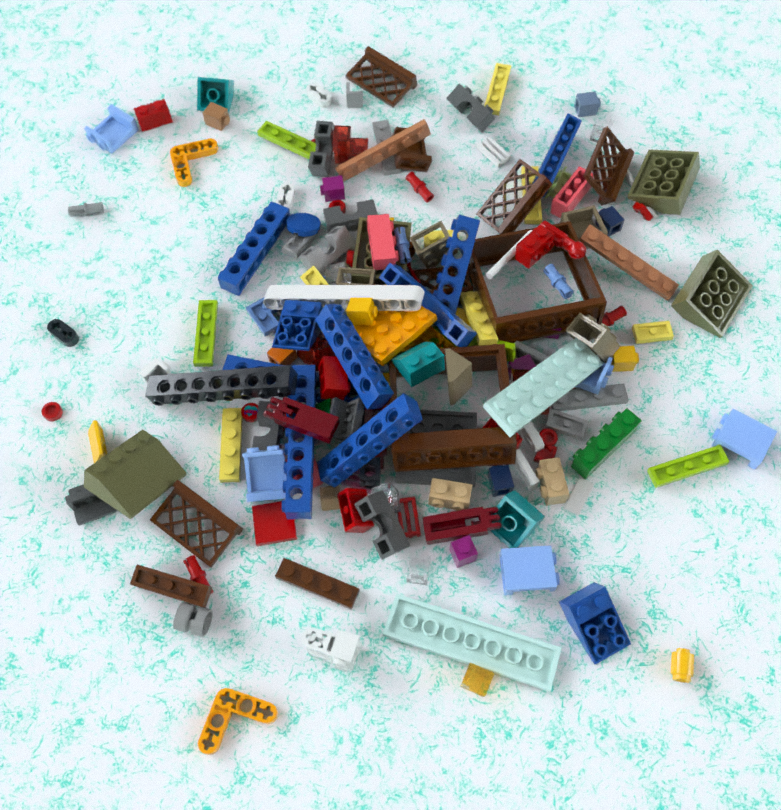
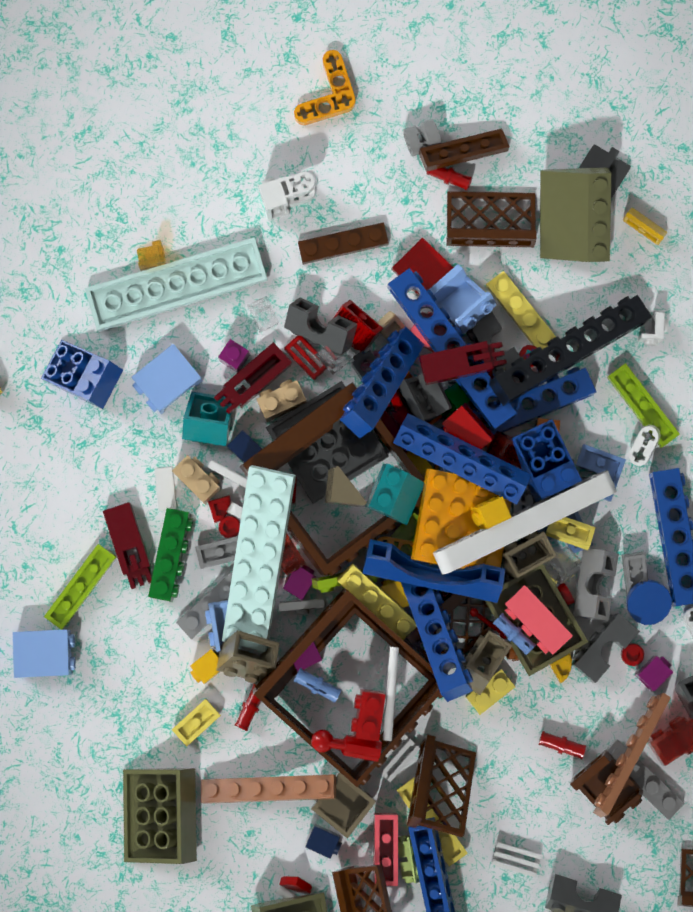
camera: 145 degrees right, 20 degrees up
(227, 309) = (639, 443): none -> white beam
(632, 478) = (125, 536): none -> dark red hinge

